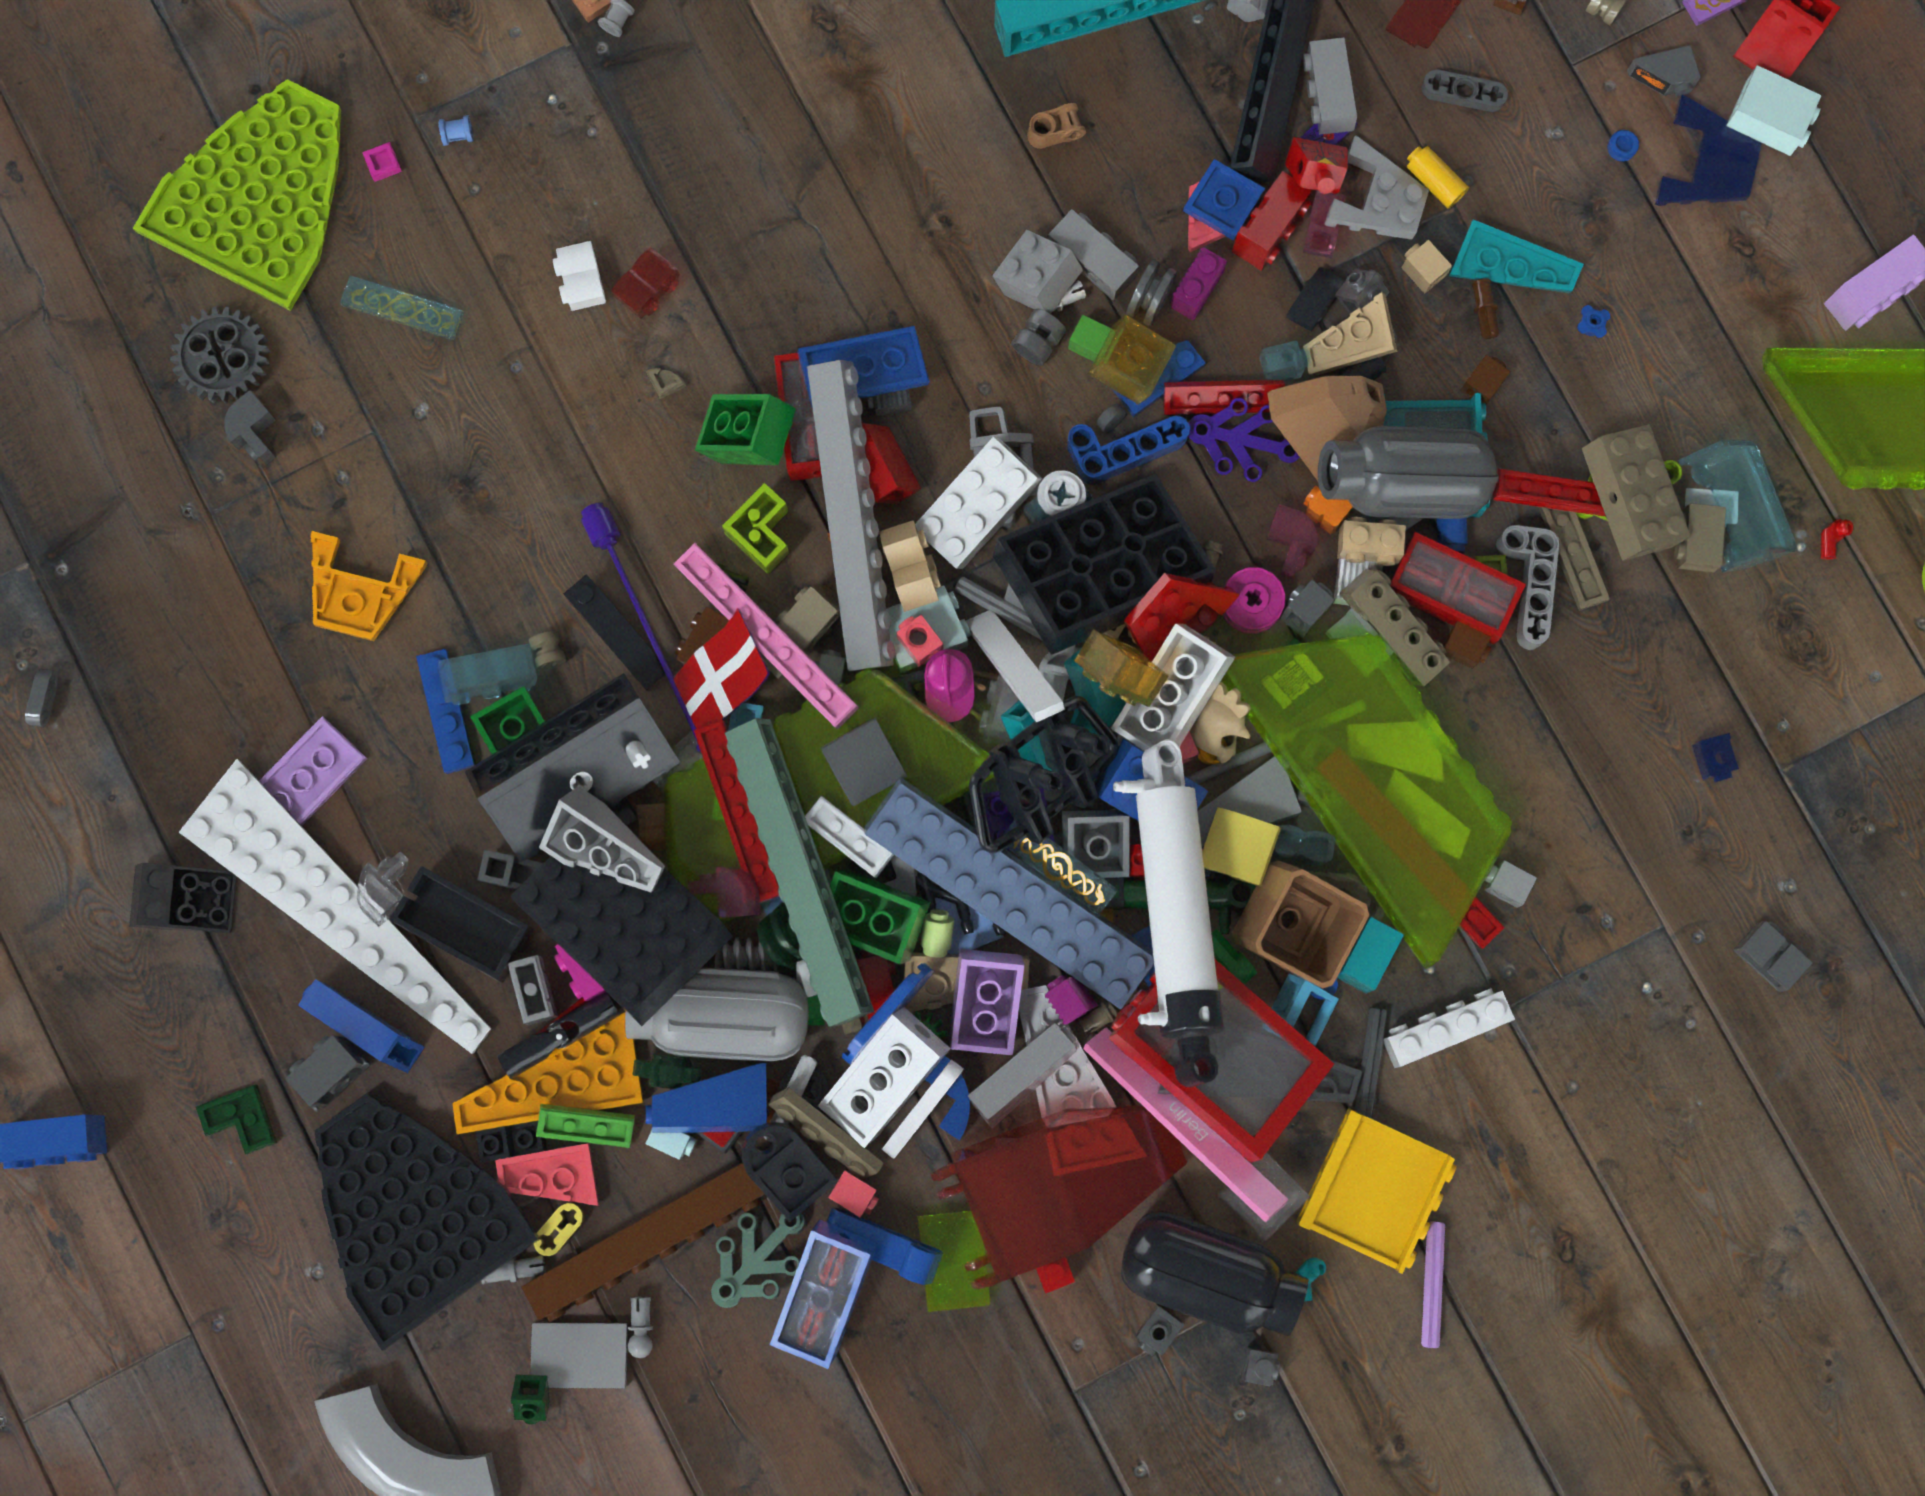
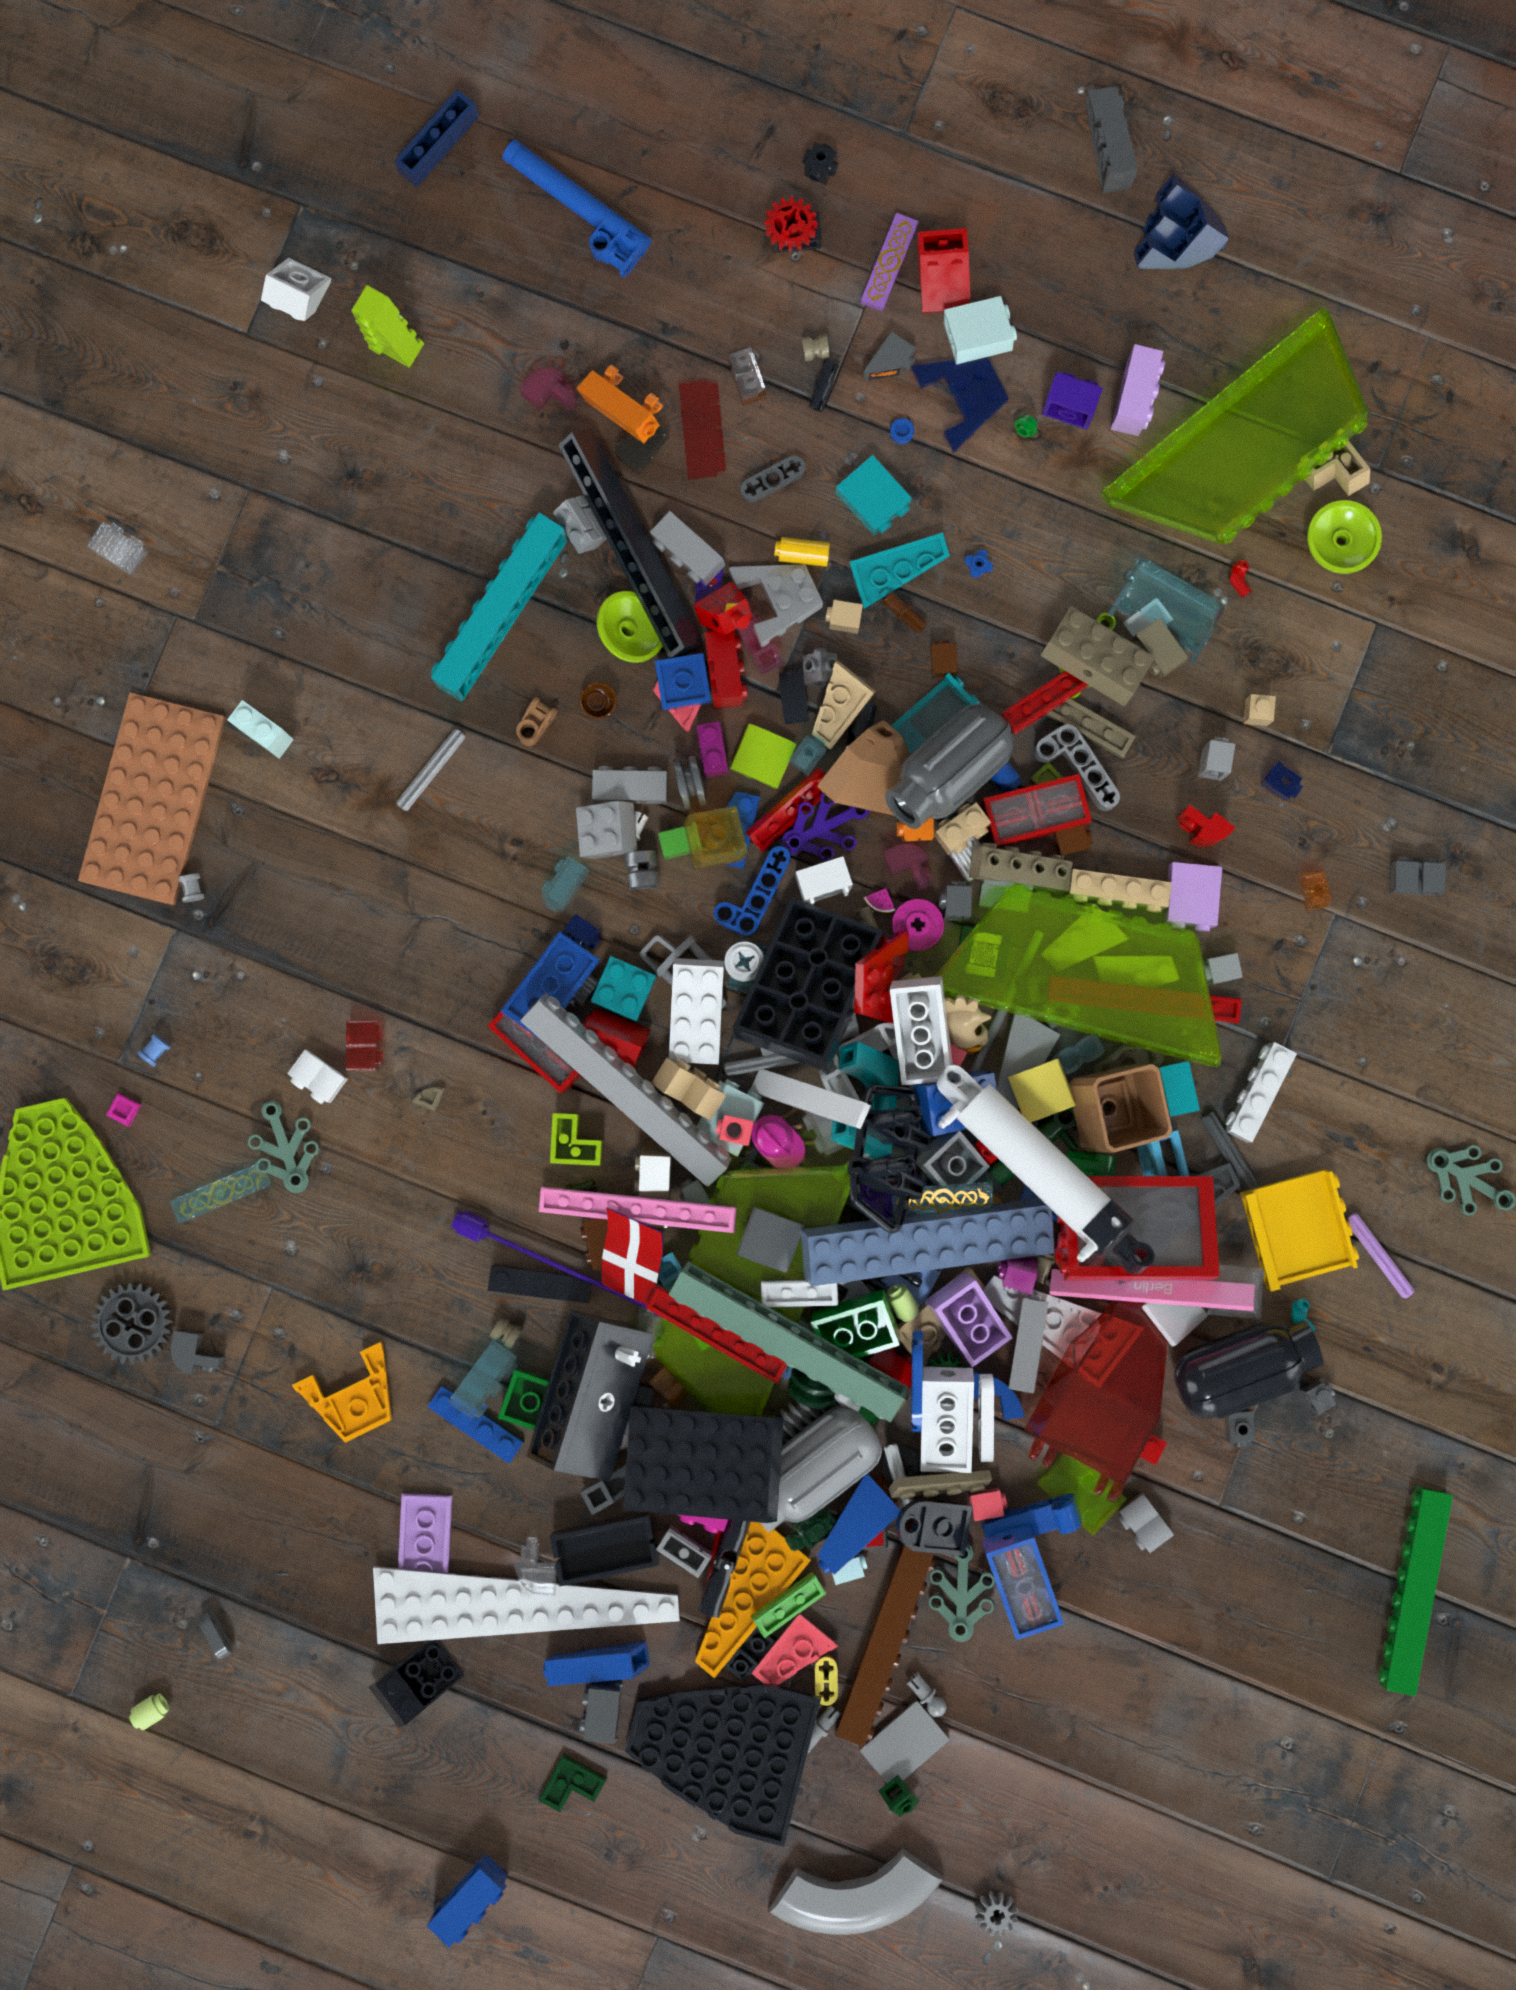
camera: 35 degrees left, 5 degrees up
(493, 318) = (285, 1151): none -> sand green plant
(593, 837) = (646, 1430): light grey wedge -> none
(735, 891) = (758, 1385): clear pink brick -> none
(745, 429) = (511, 1089): green brick -> none
(924, 91) = (430, 769): none -> light grey axle
(928, 430) = (624, 989): none -> teal brick
(935, 348) = (582, 932): none -> clear blue brick
(956, 292) = (564, 885): none -> clear light blue brick
(988, 1343) = (1145, 1522): none -> light grey brick
(1111, 418) = (731, 883): dark grey tile -> none
(1120, 669) = (880, 1047): clear yellow brick -> none
(1130, 153) = (598, 700): none -> reddish brown hair
(1182, 1172) = (1174, 1320): none -> white tile
(1199, 484) = (824, 880): none -> white container
(1223, 96) = (626, 613): none -> lime dish
(1235, 551) = (880, 902): none -> dark pink tile
(1240, 328) = (762, 756): none -> lime slope
(1472, 726) = (1119, 889): none -> tan brick
(1539, 791) = (1193, 896): none -> lavender brick
(1546, 180) = (874, 496): none -> teal brick
(1582, 1282) = (1466, 1177): none -> sand green plant
(1584, 45) = (823, 385): none -> black pin
(1604, 741) = (1206, 830): none -> red brick
(1662, 886) = (1315, 890): none -> clear orange leg
(1669, 681) = (1216, 759): none -> light grey brick
(1745, 233) = (1026, 426): none -> green plate
(1750, 672) = (1259, 710): none -> tan brick
(1809, 242) = (1072, 400): none -> dark purple brick

